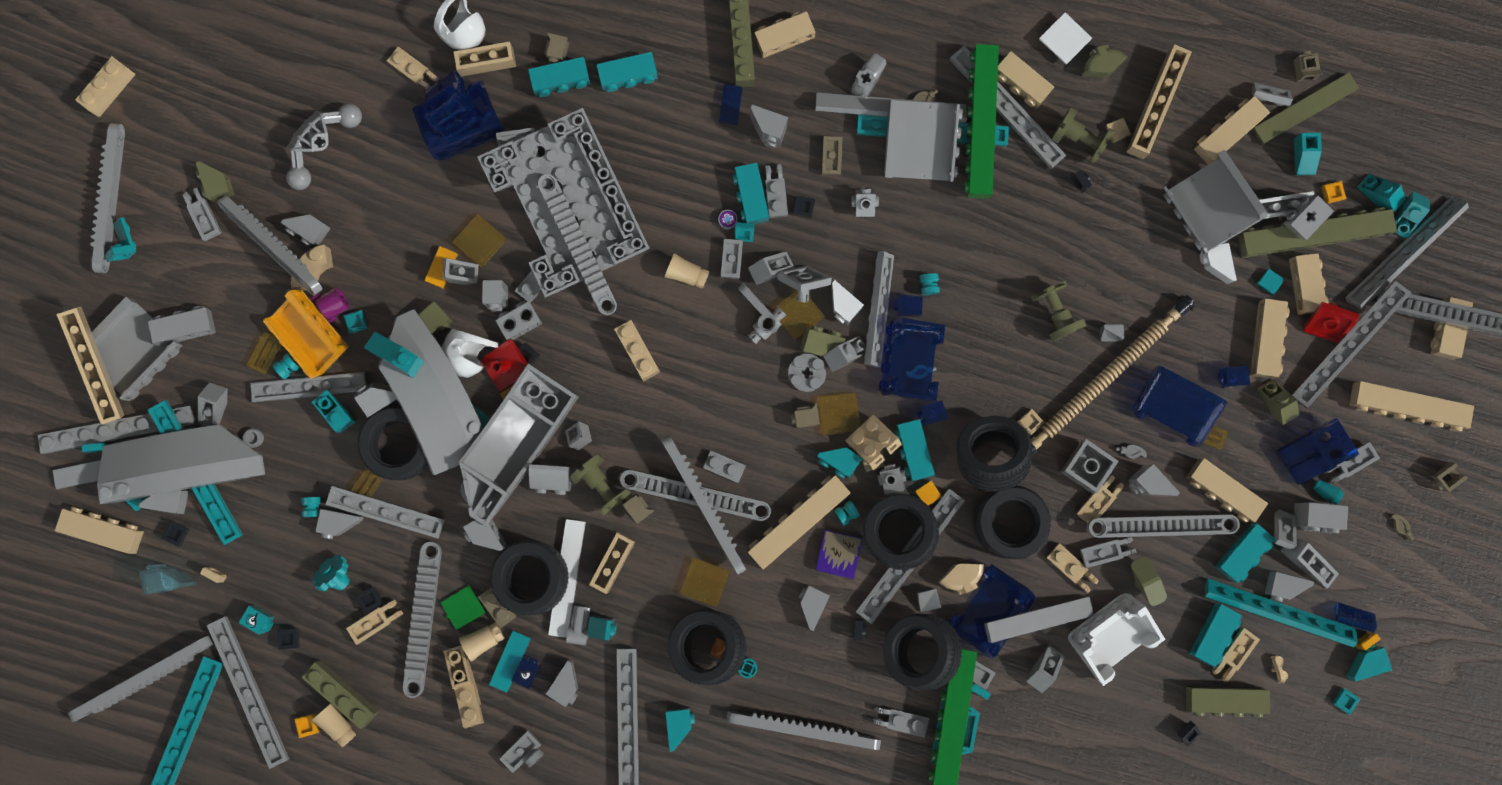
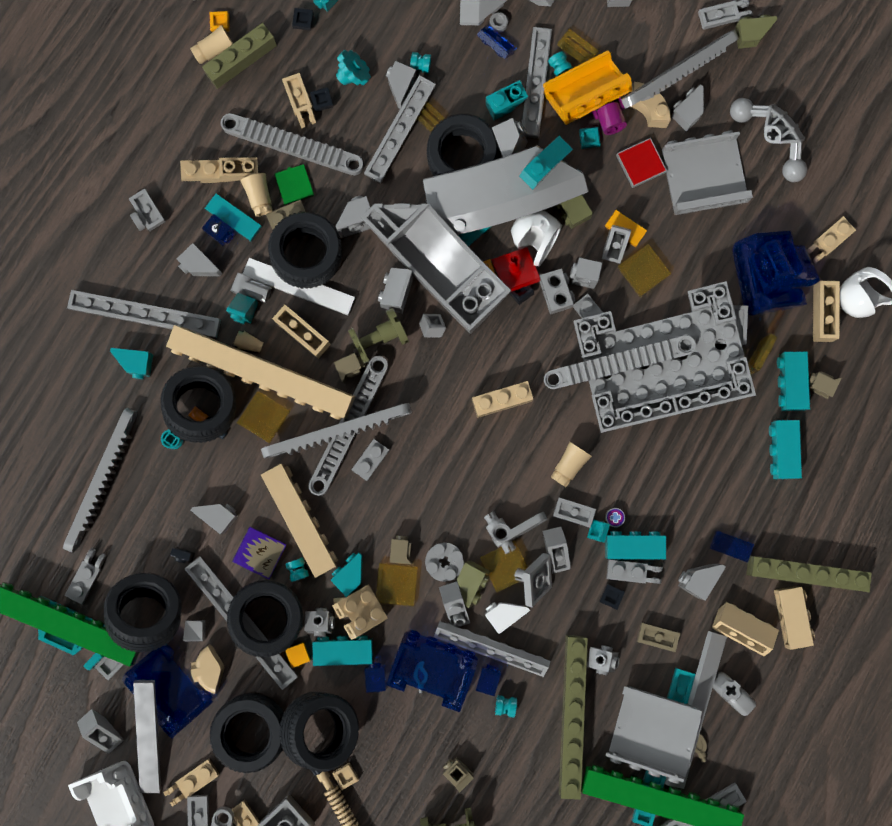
camera: 110 degrees right, 0 degrees up
(274, 435) = (496, 41): none -> clear blue plate
(369, 201) = (705, 173): none -> light grey panel
(371, 265) = (641, 163): none -> red tile
(538, 111) = (761, 353): none -> clear yellow tile
(634, 615) = (248, 342): none -> tan cone
(661, 594) = (260, 371): none -> tan brick
(805, 76) = (745, 629): none -> tan brick
(924, 219) = (573, 717): none -> olive brick
(997, 323) = (464, 780): none -> dark tan window

